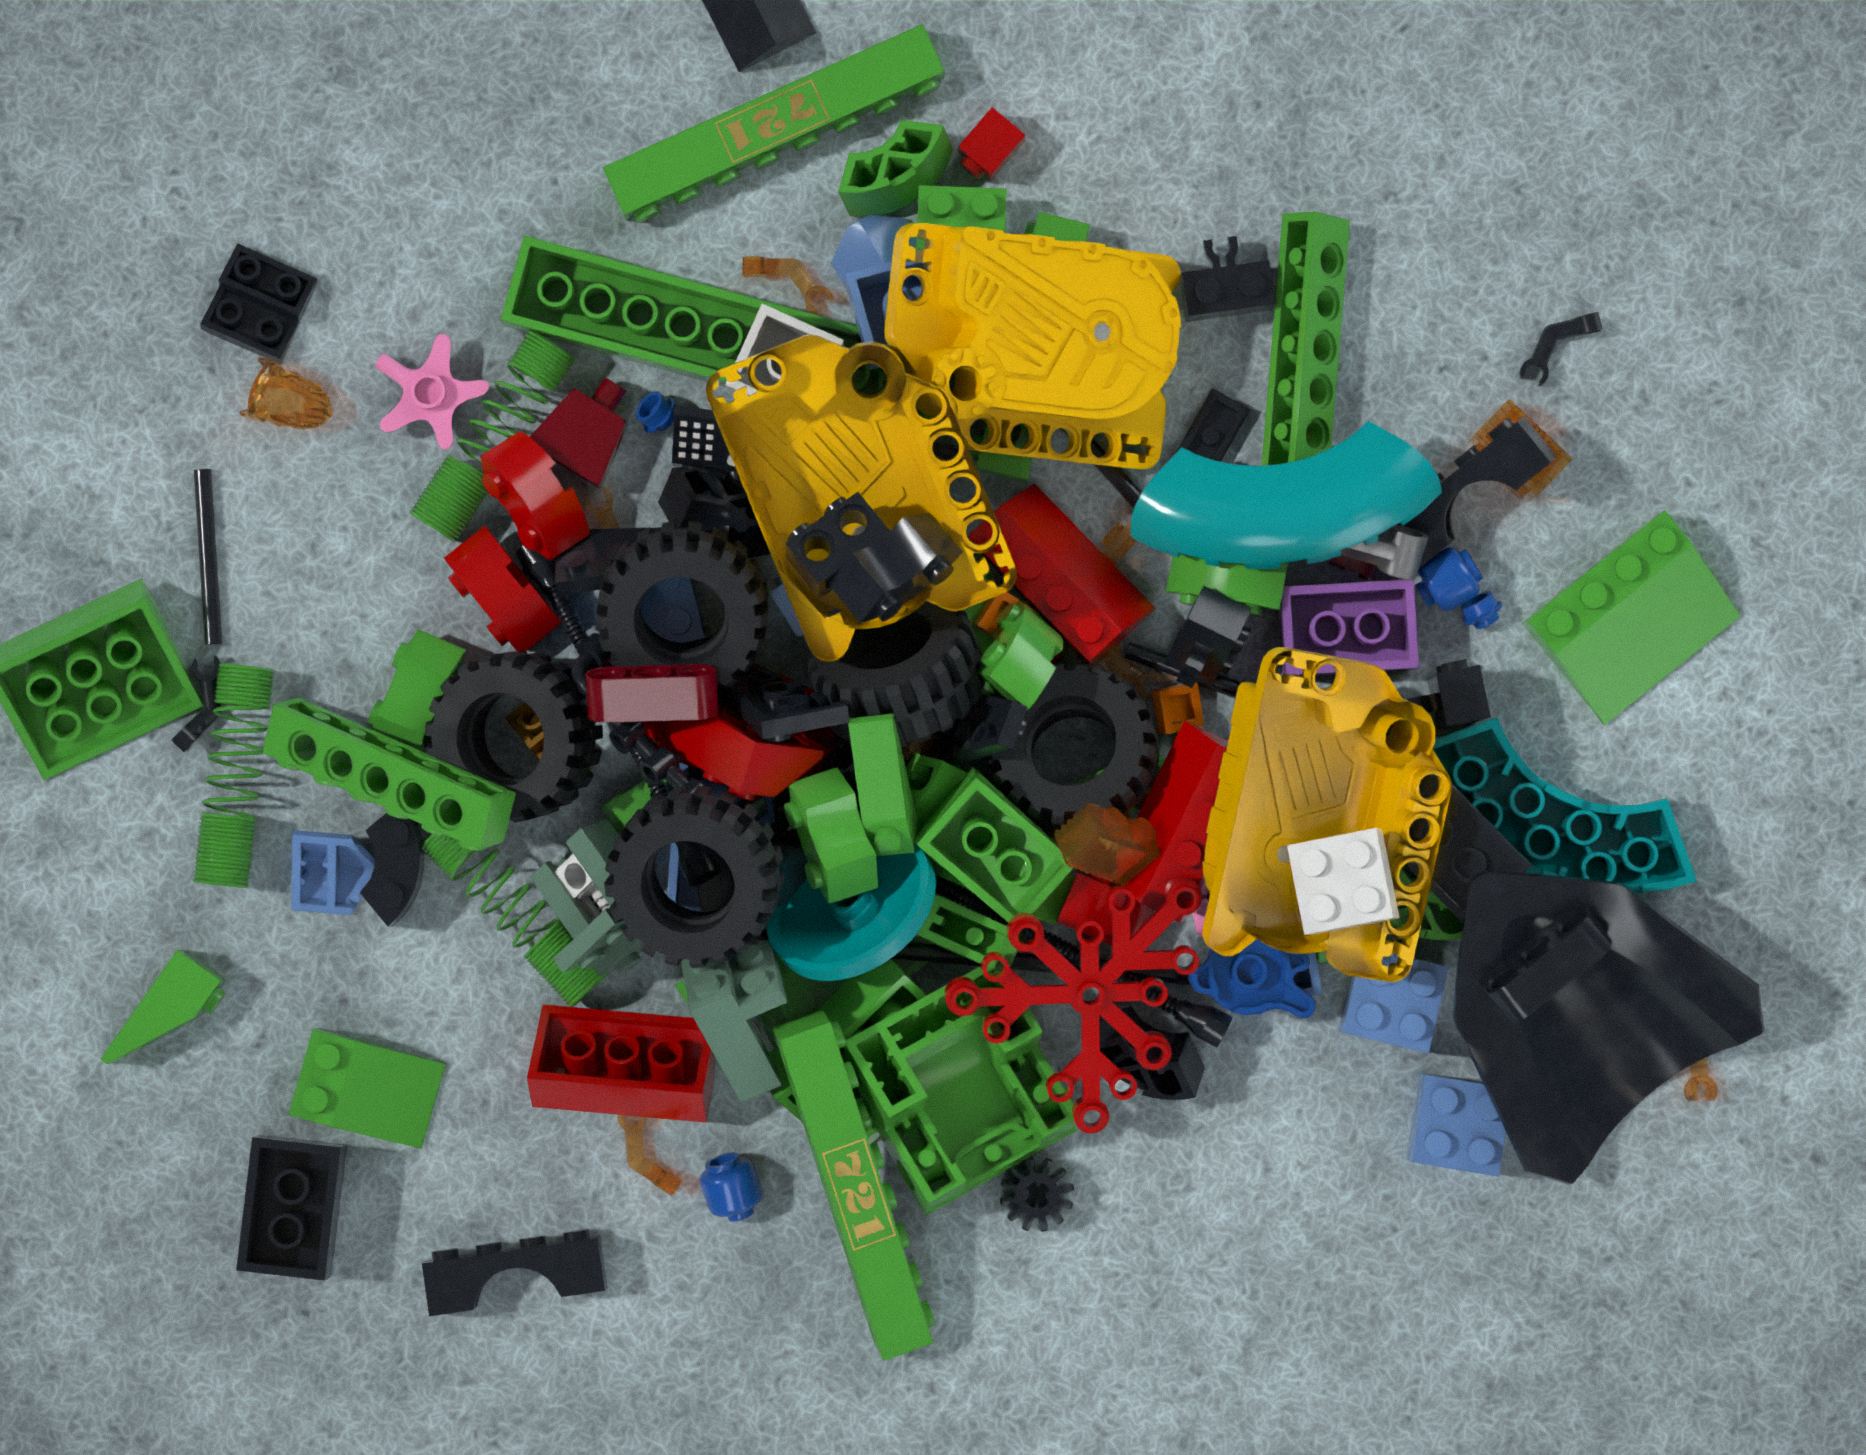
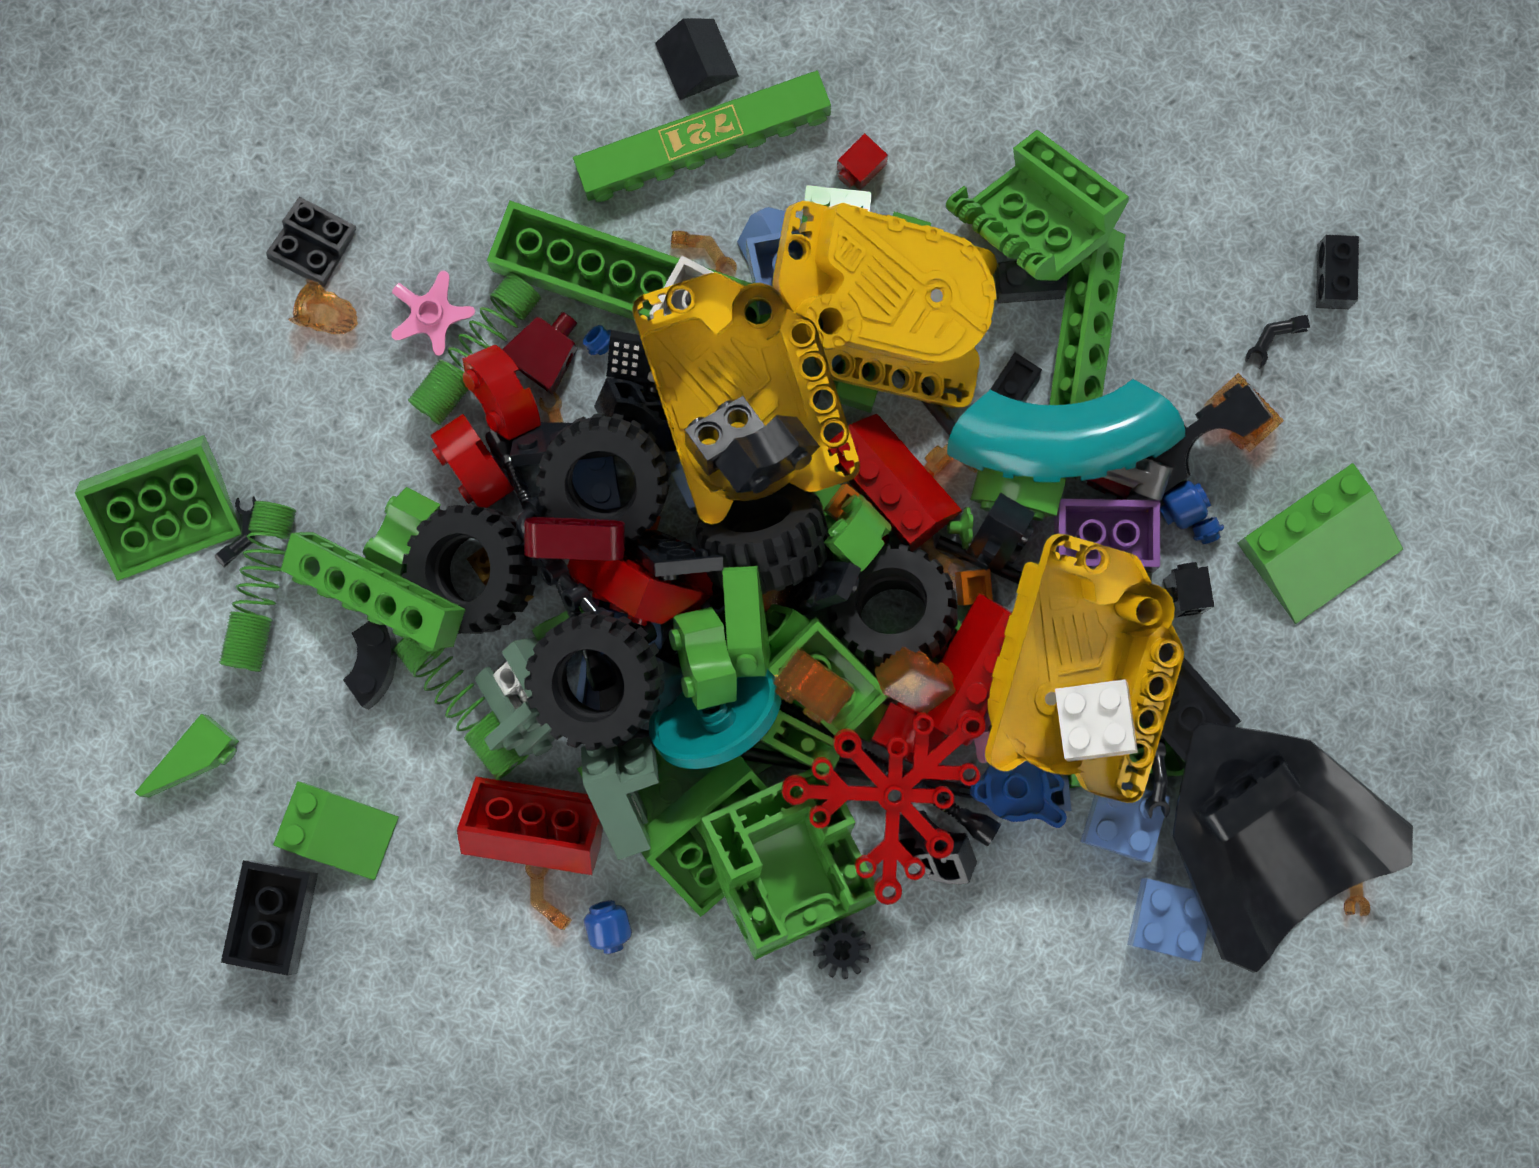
camera: 10 degrees right, 5 degrees down
(207, 556) = (255, 424): black bar -> none
(328, 872) = (321, 663): medium blue slope -> none
(571, 1265) = (392, 984): black arch -> none
(853, 1184) = (700, 930): bright green brick -> none
(891, 173) = (784, 177): bright green brick -> none
(975, 863) = (812, 686): none -> clear orange brick
(1158, 631) = (963, 527): none -> bright green plant
(1235, 199) = (1044, 209): none -> bright green slope
(1433, 950) = (1160, 783): none -> black arm
(1559, 830) = (1263, 698): teal brick -> none
(1634, 251) = (1337, 272): none -> black brick

